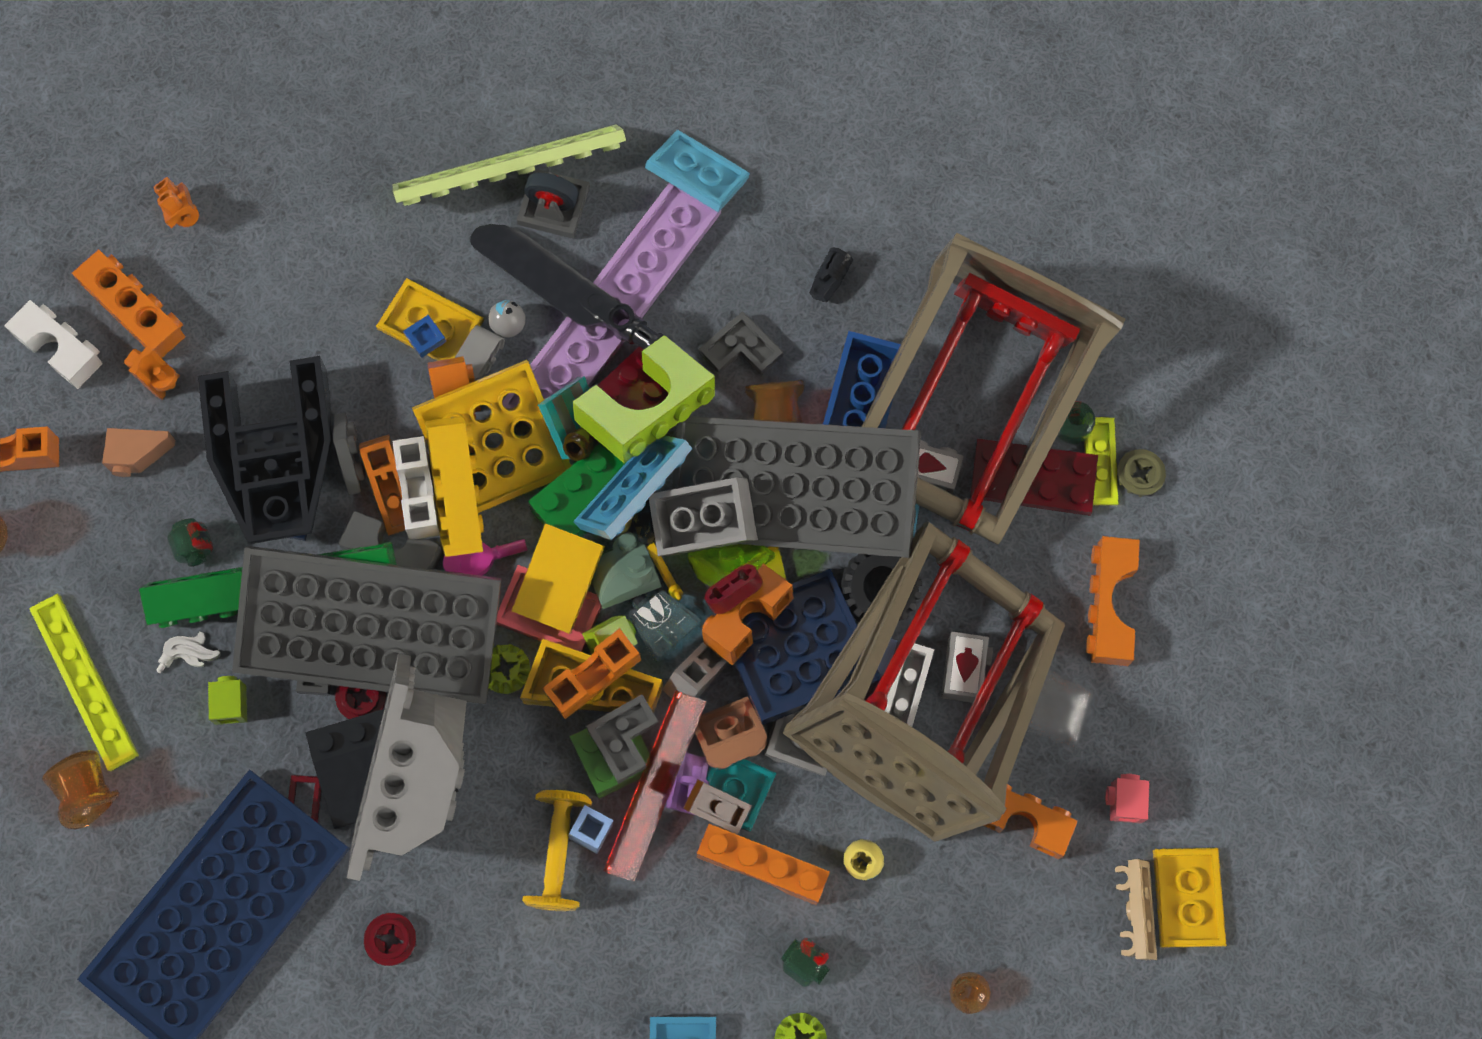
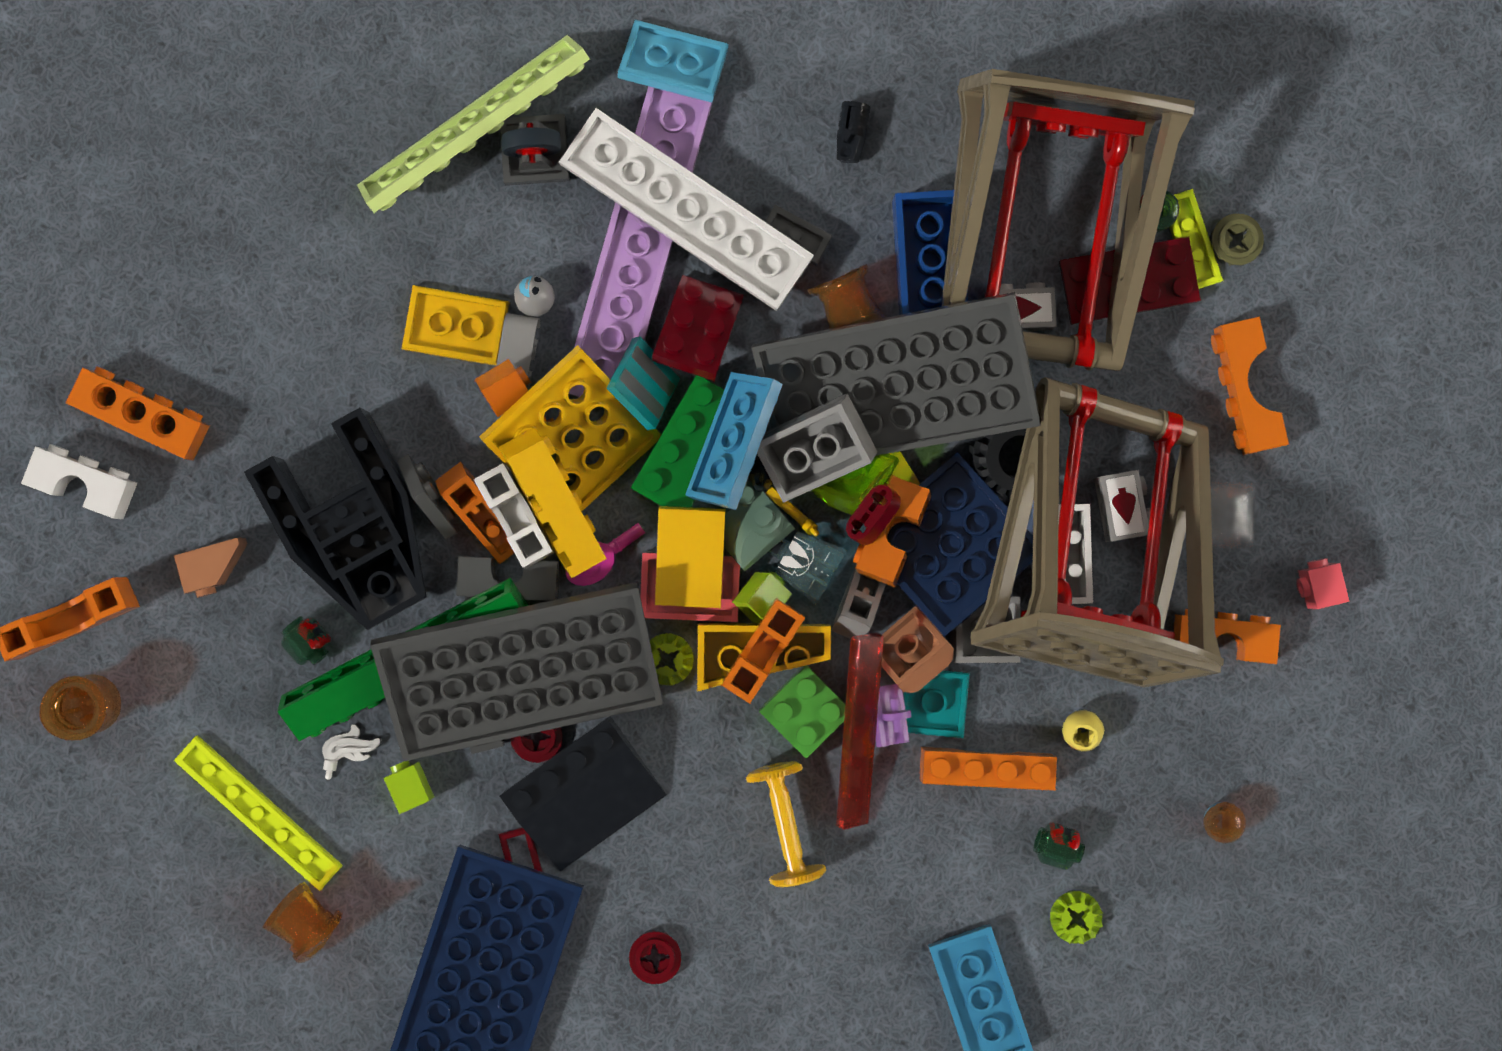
camera: 15 degrees left, 15 degrees up
(151, 371) = (193, 480): orange hips -> none
(176, 204) = (140, 287): orange hips -> none
(410, 772) = (622, 813): light grey wedge -> none
(424, 336) = (457, 345): blue plate -> none
(559, 283) = (576, 239): black piece -> none
(579, 444) = (663, 408): dark brown cone -> none
(590, 829) = (811, 792): light blue brick -> none
(615, 733) = (805, 700): dark grey plate -> none
(630, 431) = (712, 386): lime arch -> none
(663, 285) = (686, 209): none -> white plate
(717, 806) = (927, 732): plate -> none
(1139, 910) = (1362, 688): tan plate -> none
(1189, 897) = (1405, 657): yellow tile -> none

